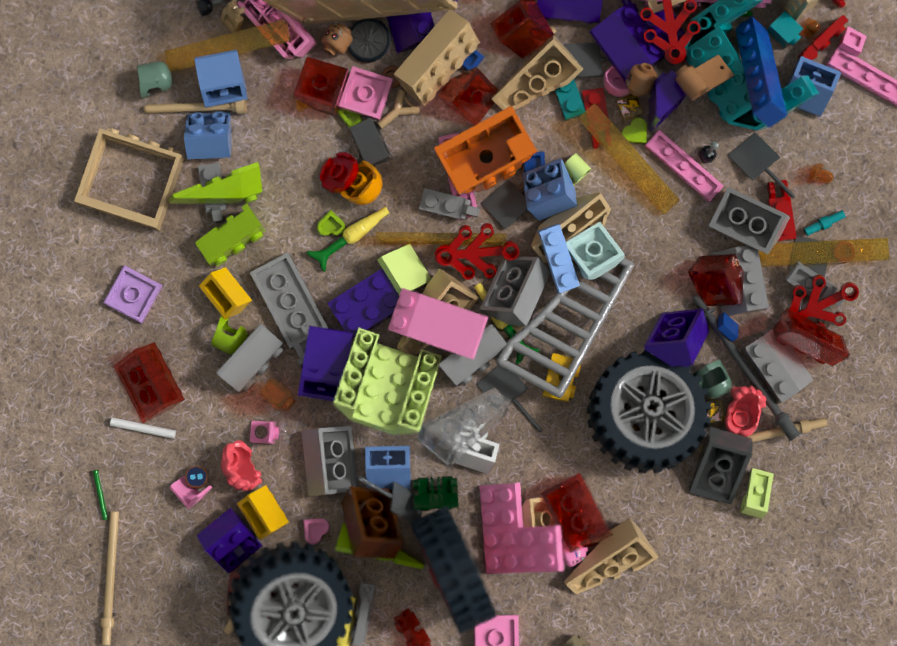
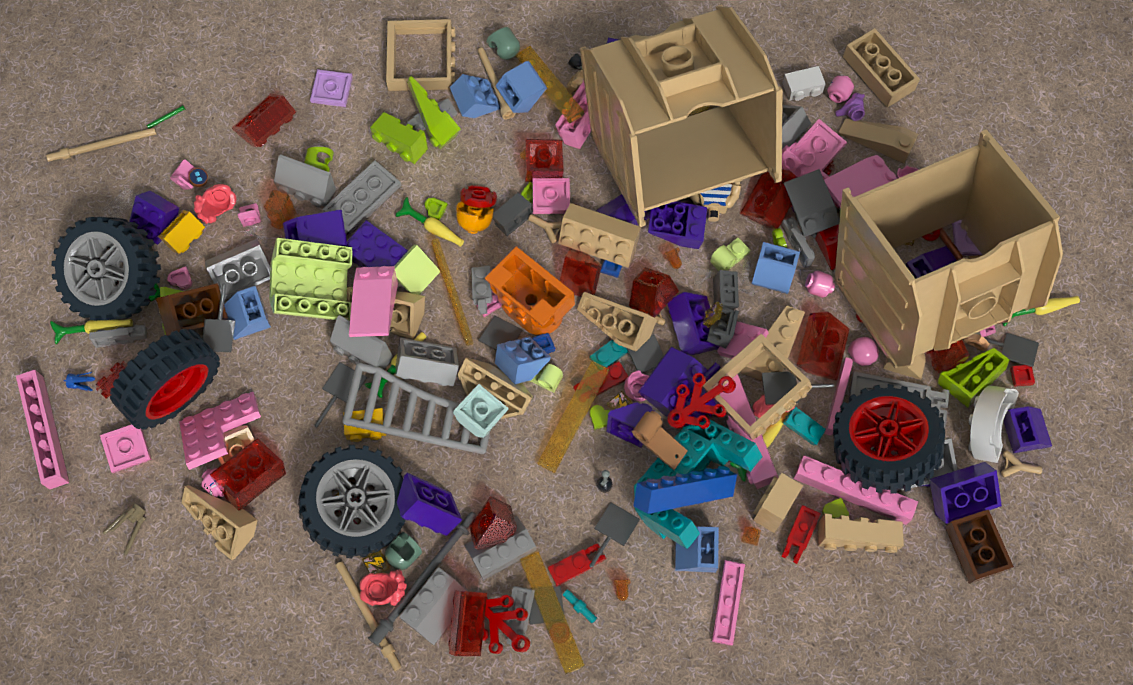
camera: 70 degrees right, 15 degrees down
(144, 428) = (227, 129): white bar -> none
(225, 293) = (351, 147): yellow brick -> none
(336, 39) = (587, 160): medium nougat head -> none
(370, 40) = (597, 186): dark grey wheel -> none
(435, 497) = (234, 355): dark green hinge -> none
(460, 428) = (295, 355): clear wedge -> none
(473, 252) = (446, 319): red plant -> none
(480, 455) = (279, 374): white brick -> none
(558, 258) = (463, 383): light blue plate -> none
(641, 79) = (642, 394): medium nougat head -> none
(684, 166) = (586, 468): bright pink tile -> none
(721, 465) = (328, 584): dark grey slope -> none
(728, 326) = (455, 550): blue tile -> none
(749, 221) = (554, 533): light grey slope -> none
(758, 494) = (312, 626): yellowish green plate -> none
(785, 30) = (739, 511): teal brick -> none
(821, 41) = (743, 547): red hinge -> none
(852, 41) = (754, 574): bright pink plate -> none

